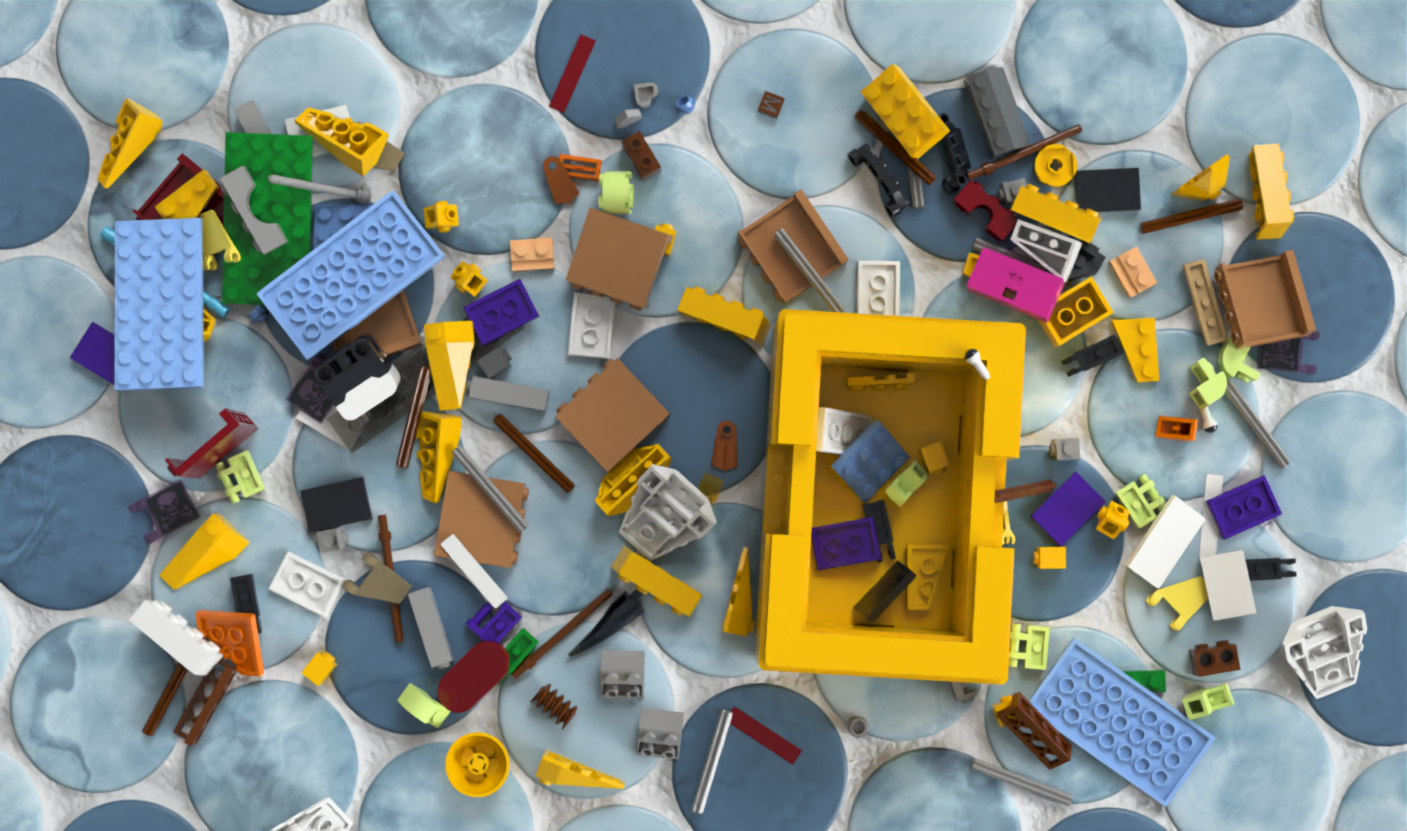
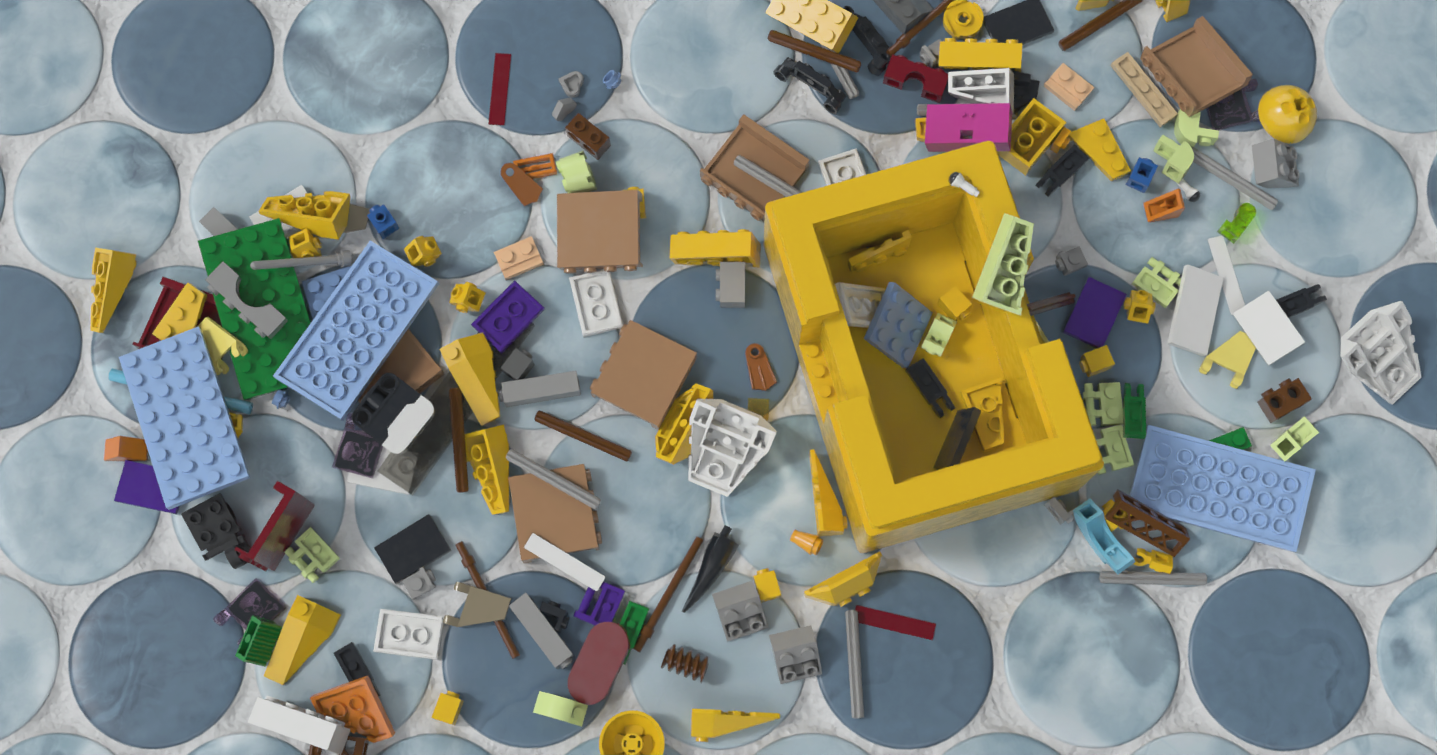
camera: 10 degrees left, 10 degrees down
(95, 311) = (125, 448): none -> orange slope
(157, 421) = (216, 530): none -> black plate
(164, 543) = (258, 641): none -> green brick
(329, 170) = (304, 245): none -> yellow brick
(414, 177) = (387, 225): none -> blue brick
(449, 611) = (553, 609): none -> black bracket
(656, 581) = (740, 511): yellow wedge -> none
(656, 659) = (767, 585): none -> yellow brick
(710, 632) = (808, 542): none -> light orange cone
(728, 356) = (731, 284): none -> light grey brick
(731, 685) = (847, 583): none -> yellow wedge
(771, 104) = (689, 54): reddish brown tile -> none
(845, 543) = (905, 409): dark purple tile -> none
(857, 726) = (979, 581): light grey plate -> none
(986, 462) = (1006, 266): none -> yellowish green wedge
(987, 729) = (1100, 538): none -> medium azure arch
(1032, 767) = (1157, 560): none -> yellow plate
(1047, 600) = (1109, 403): none -> yellowish green plate
(1066, 620) = (1134, 413): none -> green hinge
(1103, 326) = (1061, 141): none -> light orange plate
(1177, 386) = (1139, 181): none -> blue brick
(1243, 507) = (1253, 256): dark purple tile -> none
(1246, 469) = (1241, 220): none -> clear neon green leg
(1302, 425) = (1275, 164): none -> light grey slope
(1335, 378) = (1287, 113): none -> yellow piece

